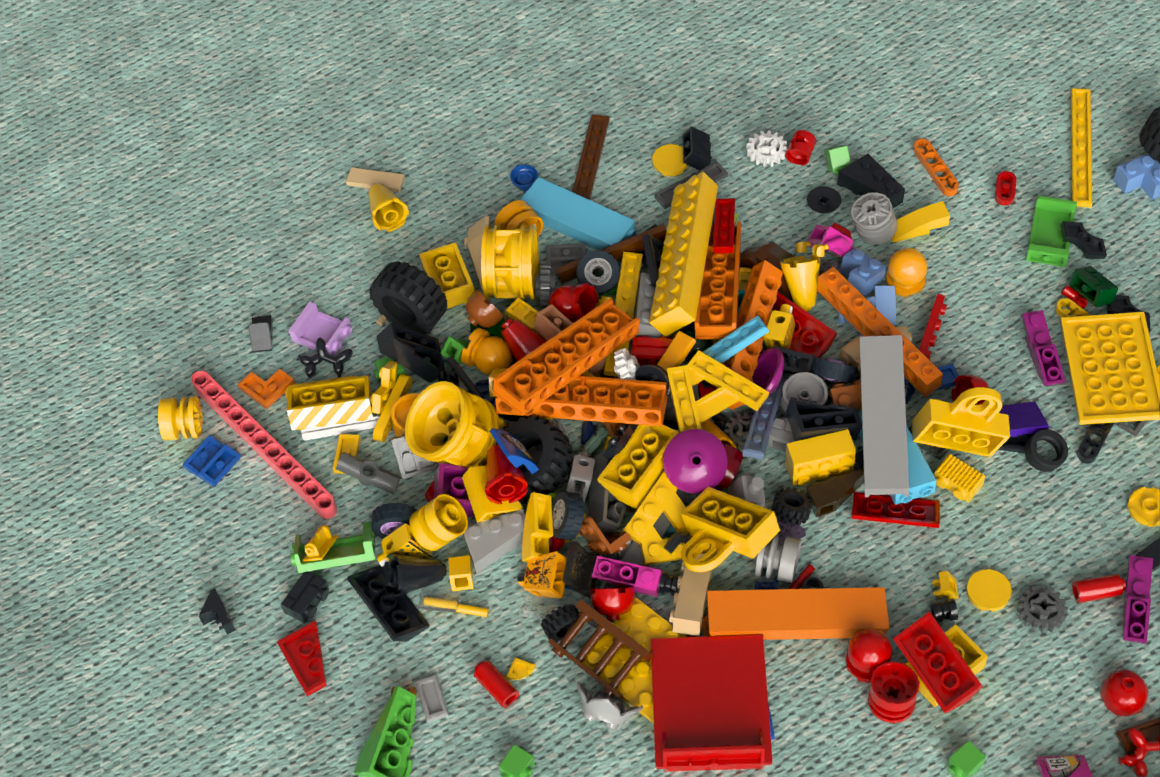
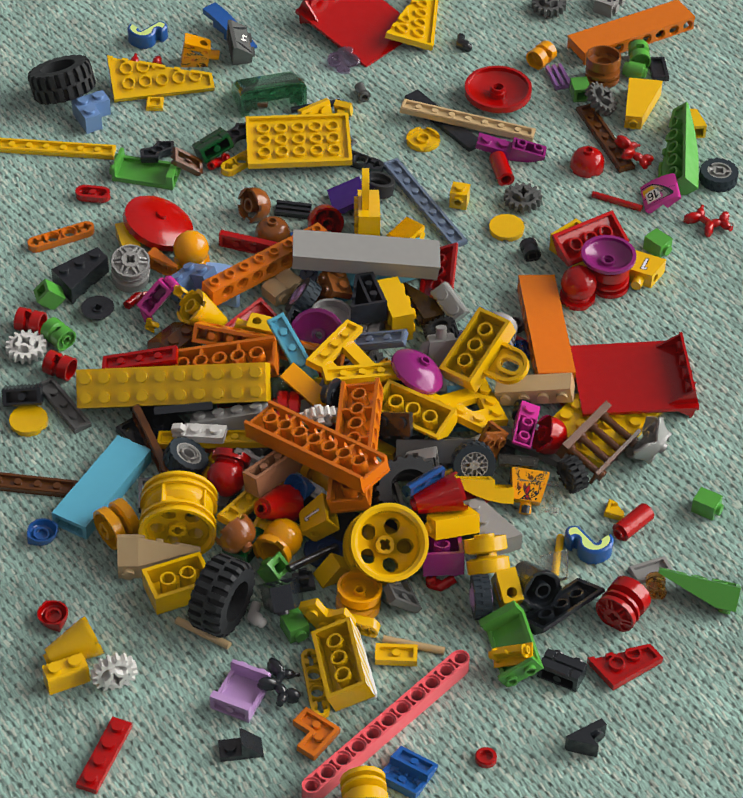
camera: 100 degrees left, 10 degrees down
(217, 526) = (485, 757): none -> red tile
(272, 237) = (104, 755): none -> red plate
(345, 231) = (114, 672): none -> white gear
(355, 482) = (421, 646): none -> tan bar
(356, 202) = (65, 673): none -> yellow brick
(356, 467) = (423, 628): dark grey piece -> none
(368, 178) = (27, 666): tan tile -> none
(371, 655) = (623, 603): none -> red wheel
(426, 191) = (53, 614): none -> red hat
(461, 573) = (526, 550): yellow brick -> none
(465, 631) = (587, 549): none -> blue animal
(627, 282) = (200, 432): none -> white hinge
(677, 539) = (487, 392): black arm -> none
(738, 174) = (59, 365): none -> red wheel
(782, 170) = (58, 334): none -> bright green wheel
(832, 512) = (450, 301): none -> light grey brick
(897, 661) = (608, 254): none -> magenta dish
(900, 241) = (161, 263): none -> orange slope
(913, 738) = (646, 270): none -> yellow torso
(948, 586) = (507, 246): yellow tile -> none
(954, 240) = (155, 221): none -> red dish
(954, 348) = (272, 229): none -> dark orange cylinder
(996, 329) = (254, 200): none -> dark orange cylinder
(1002, 356) = (292, 209): none -> black tile
(1026, 503) = (424, 202): none -> sand blue tile
(1034, 536) = (460, 192): none -> yellow brick
(1041, 349) = (281, 181): magenta slope -> none
(1054, 724) = (617, 201): none -> red bar
(1069, 265) = (183, 160): none -> reddish brown tile

